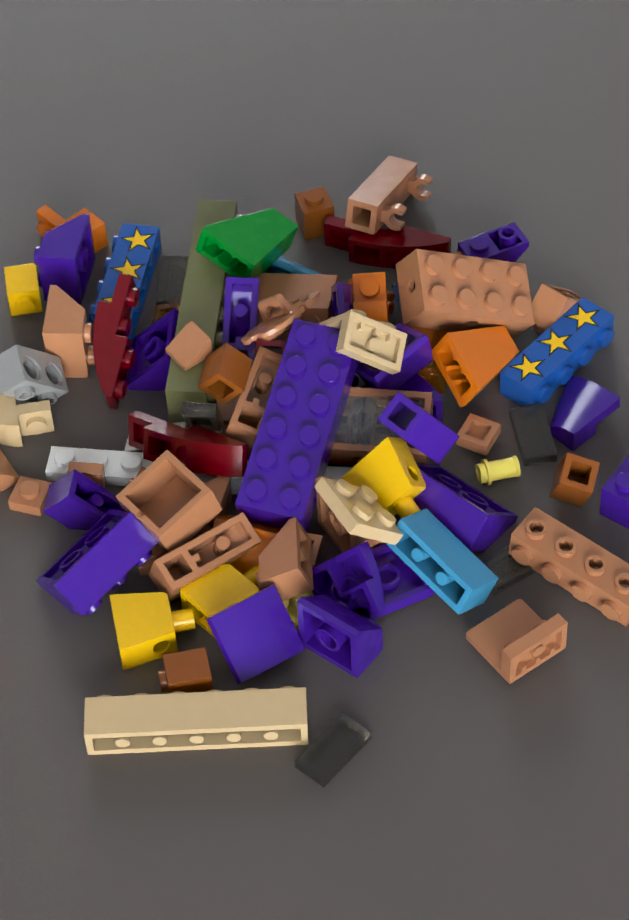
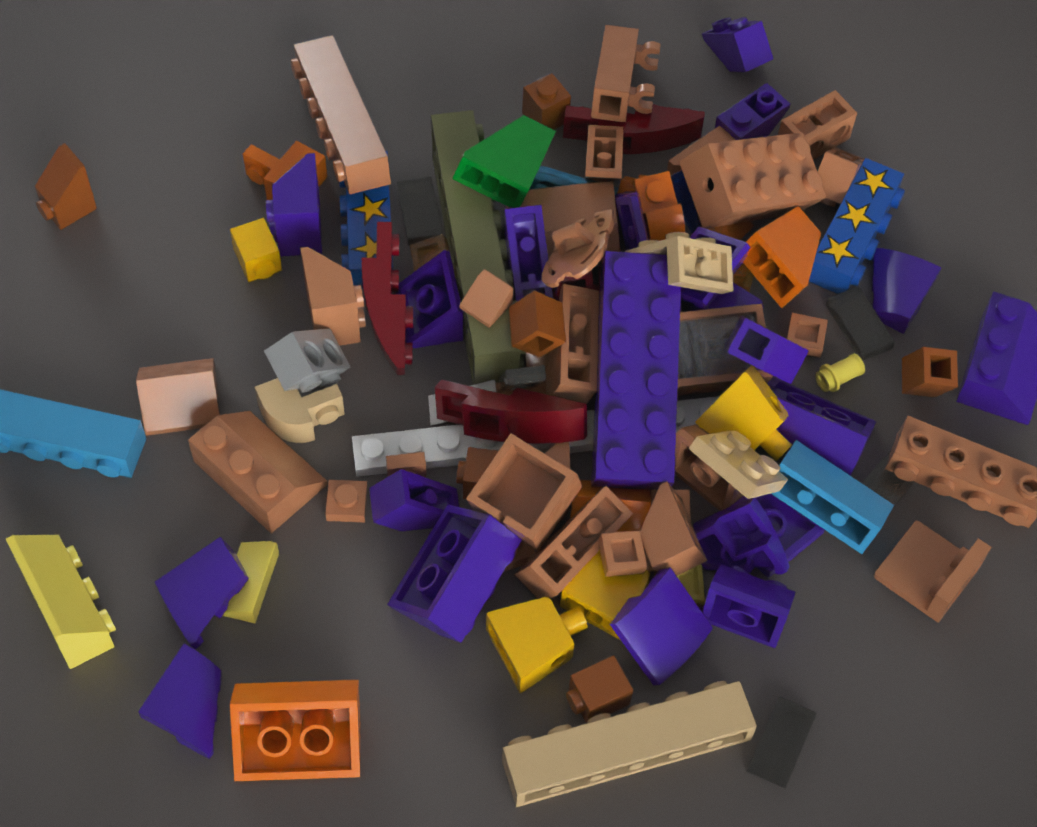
camera: 20 degrees left, 10 degrees up
(126, 192) = (340, 115): none -> nougat brick
(238, 567) = (622, 553): none -> nougat plate
(343, 256) = (604, 153): none -> nougat slope
(508, 189) = (739, 43): none -> dark purple slope
(553, 263) = (823, 123): none -> nougat brick

